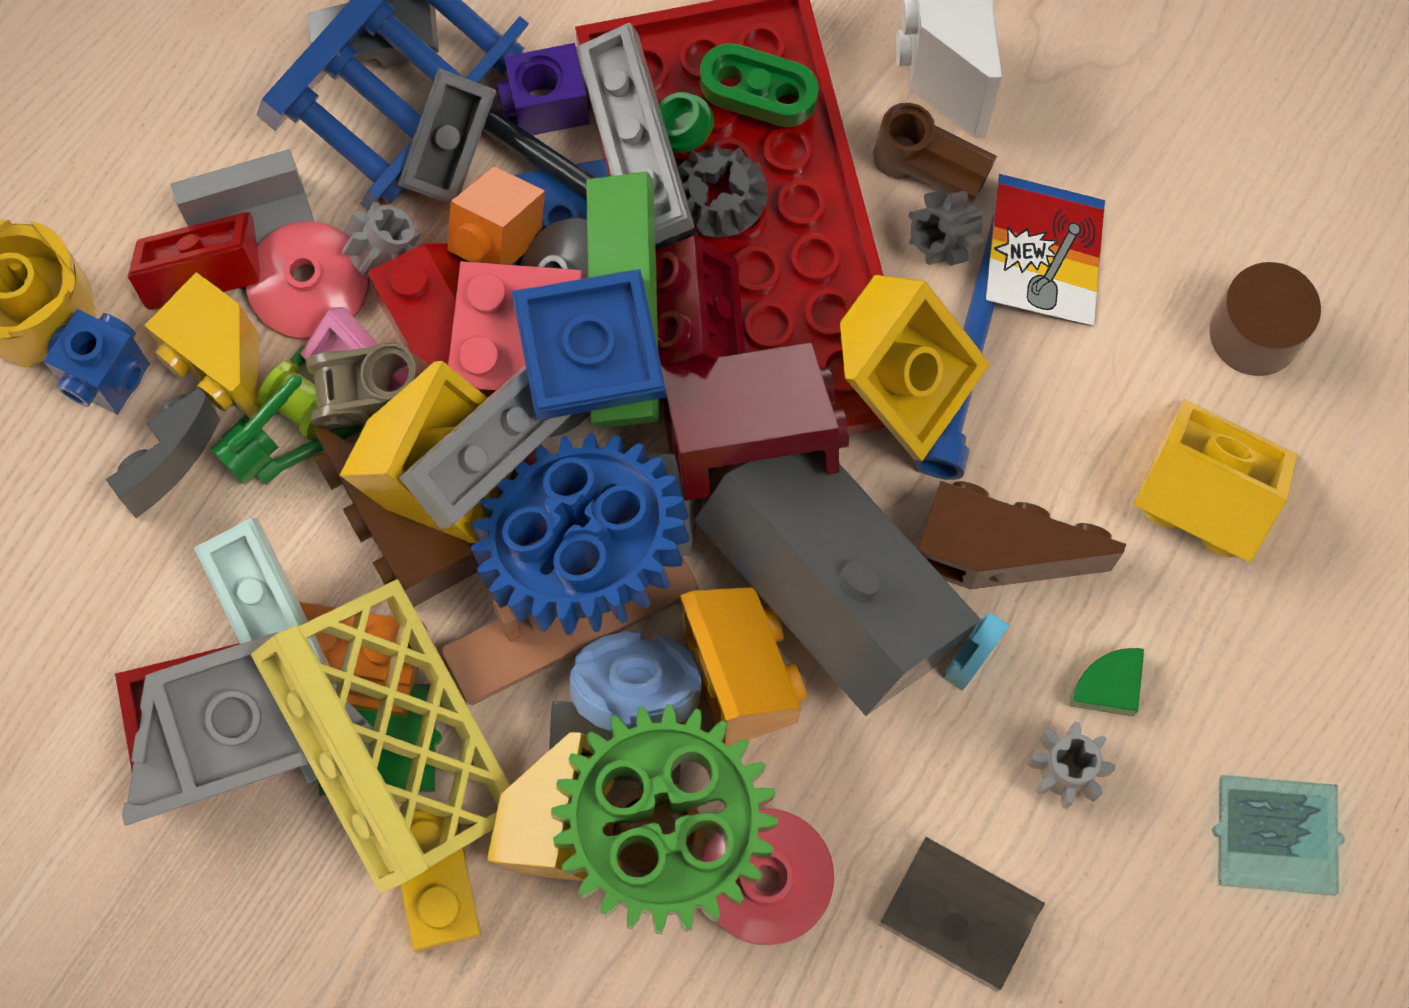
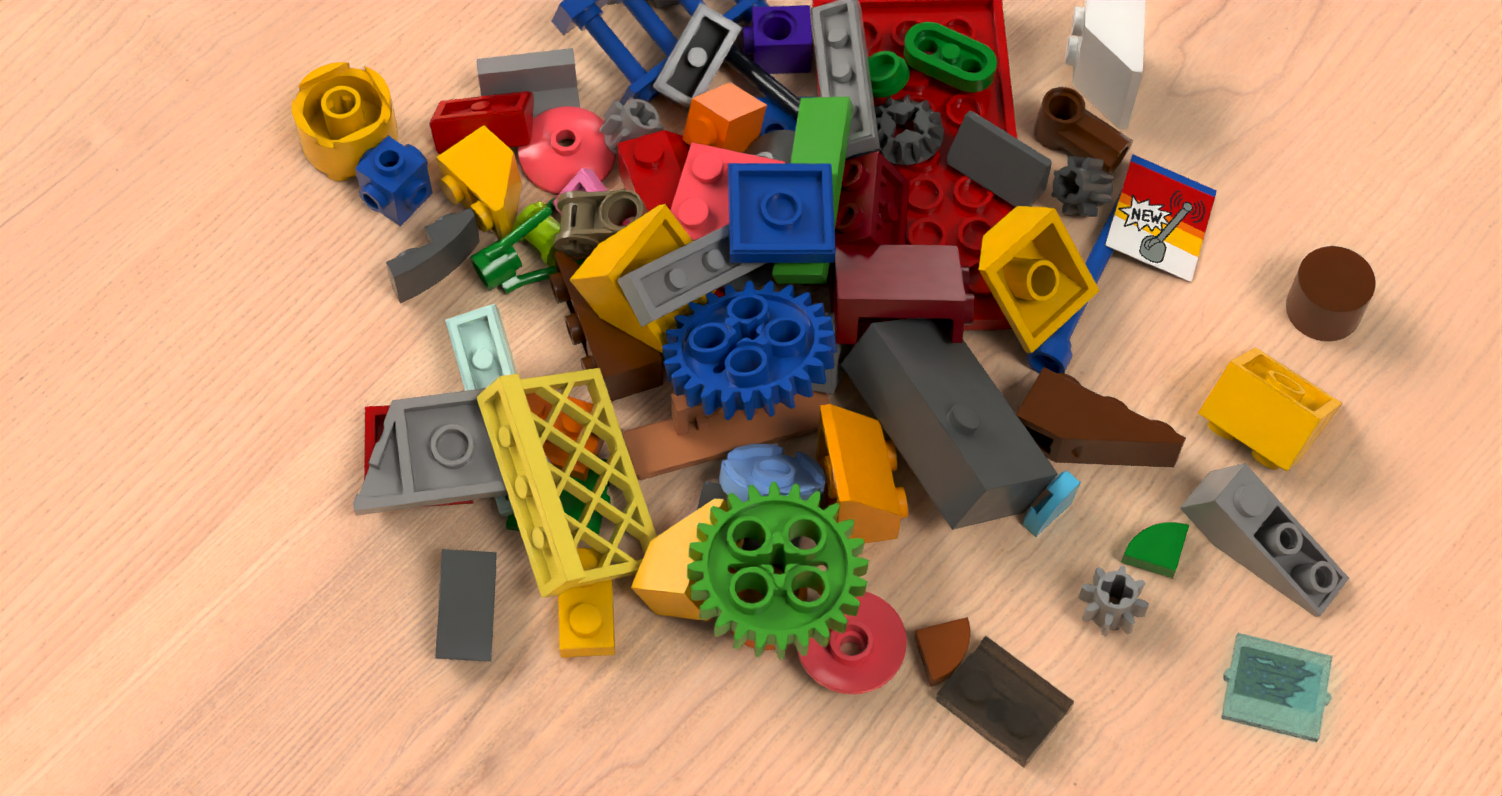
camera: 10 degrees right, 10 degrees down
(287, 914) = (466, 605): none -> dark grey slope
(842, 217) = (999, 161): none -> dark grey slope
(877, 860) = (943, 648): none -> dark orange tile
(1234, 648) = (1264, 537): none -> light grey slope

